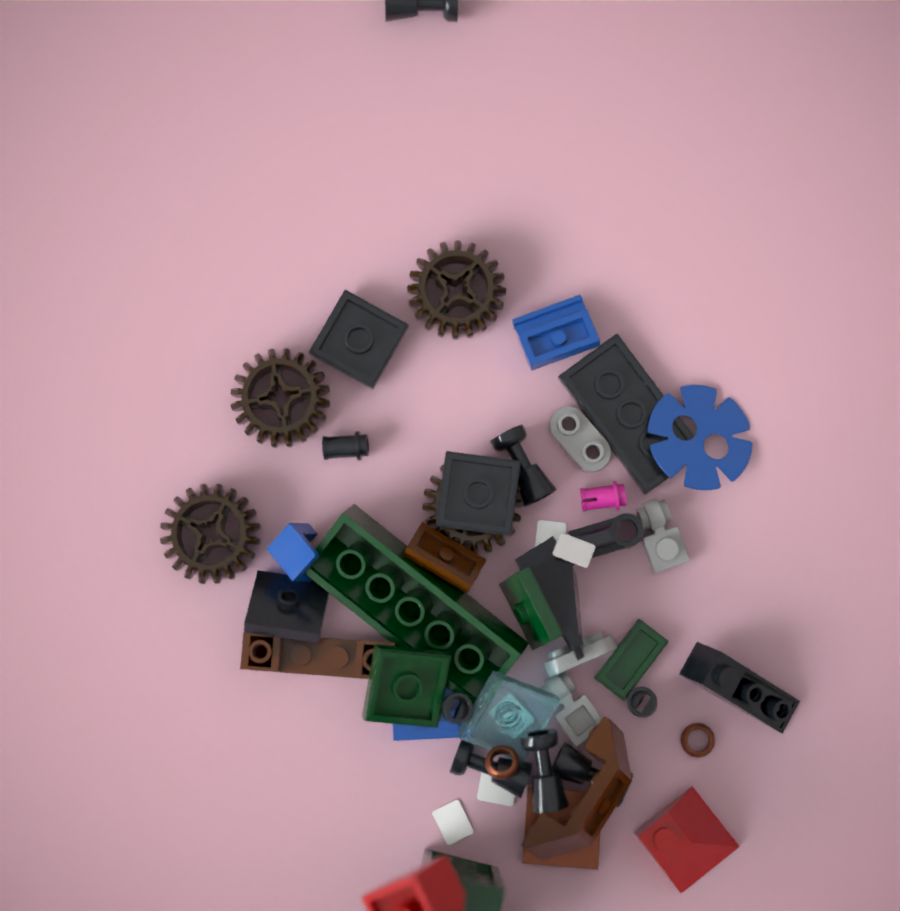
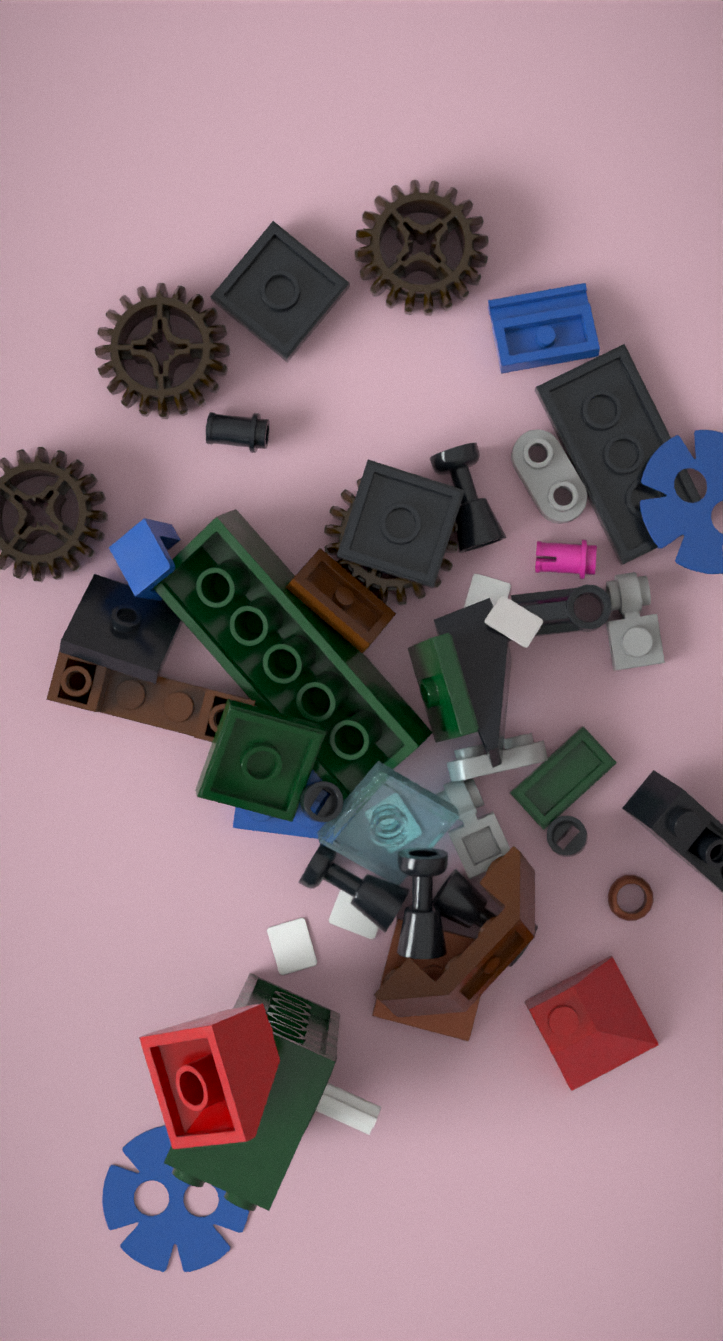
camera: 15 degrees right, 5 degrees up
(501, 749) = (364, 865): copper piece -> none

